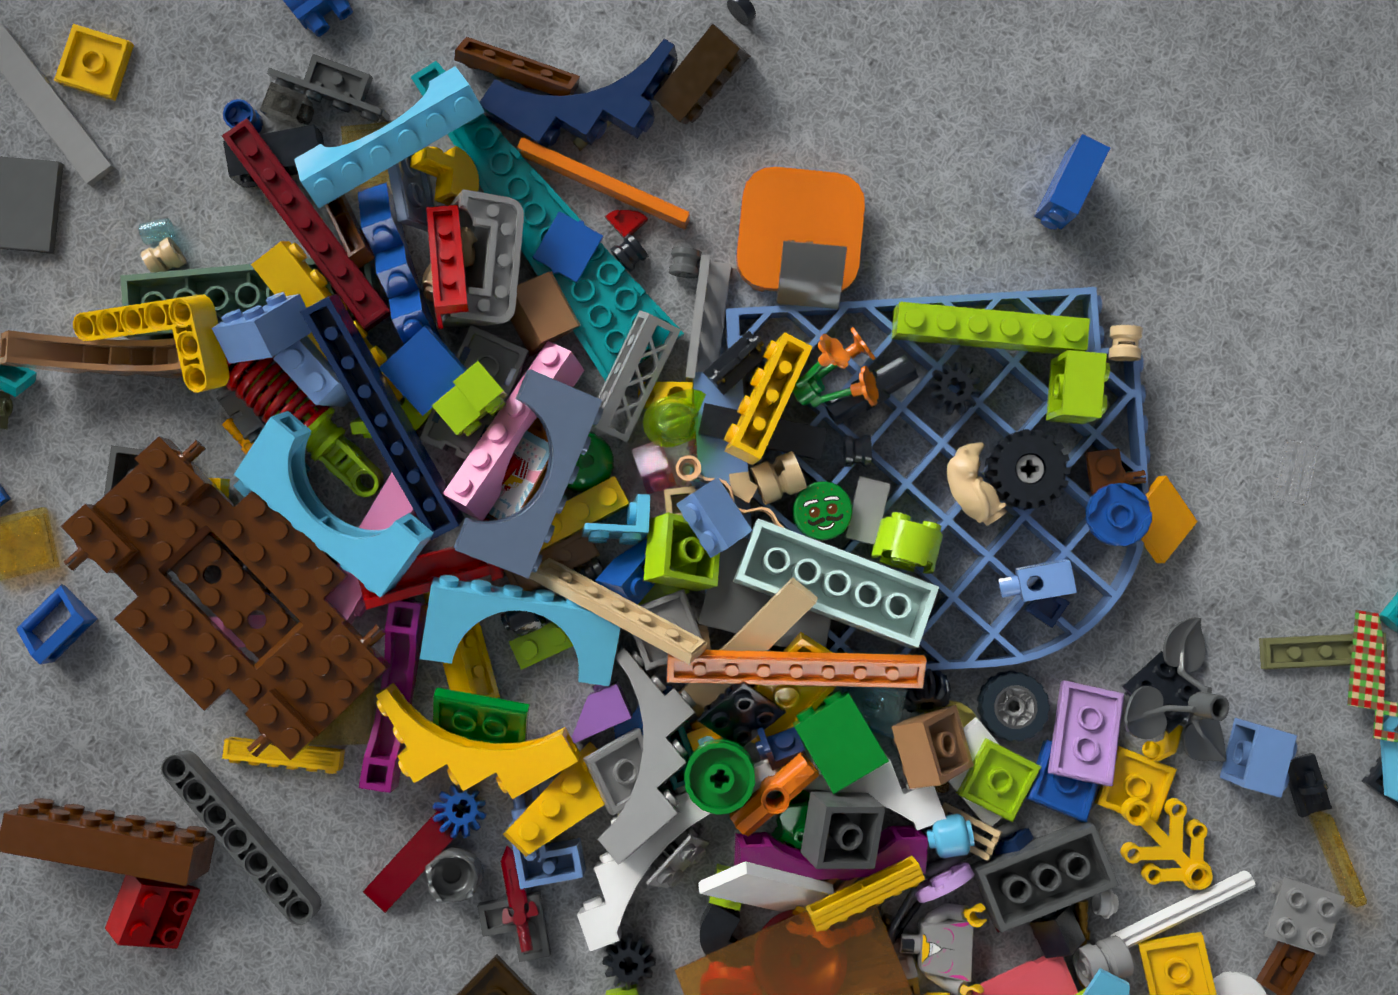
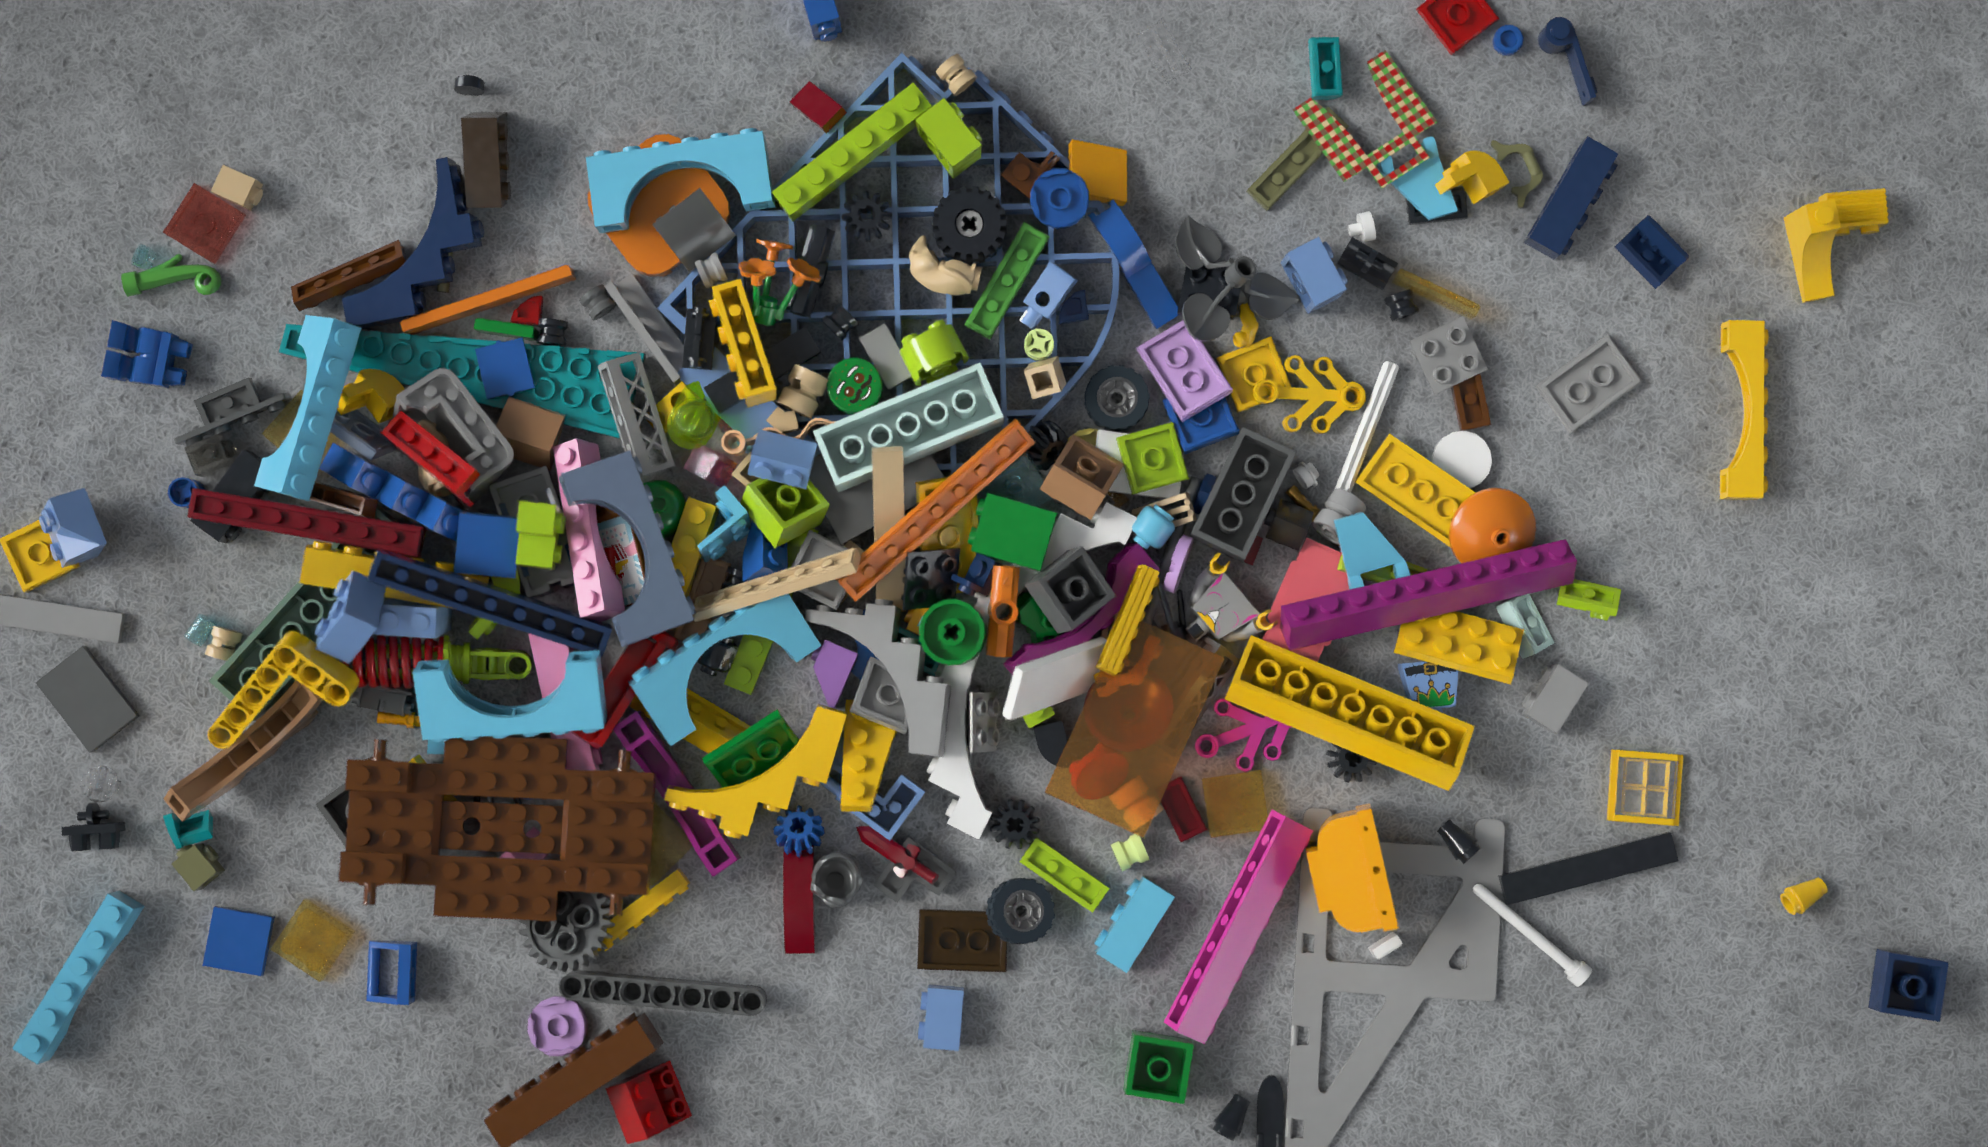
camera: 45 degrees left, 0 degrees up
(130, 63) = (72, 528): none -> medium blue slope
(147, 781) = (564, 1019): none -> lavender tile
(220, 741) = (586, 936): none -> dark grey gear
(596, 217) = (505, 329): none -> green tile
(794, 182) = (620, 176): none -> medium azure arch
(795, 318) = (711, 270): none -> light grey wheel
(977, 644) = (1045, 377): none -> tan brick
(991, 269) = (818, 107): none -> dark red tile
(1001, 613) = (1037, 339): none -> yellowish green wheel
(1015, 538) = (1007, 281): none -> bright green tile
(1128, 617) = (1135, 264): none -> blue piece
(1302, 841) = (1401, 305): none -> black wheel
(1329, 753) = (1364, 227): none -> white tile

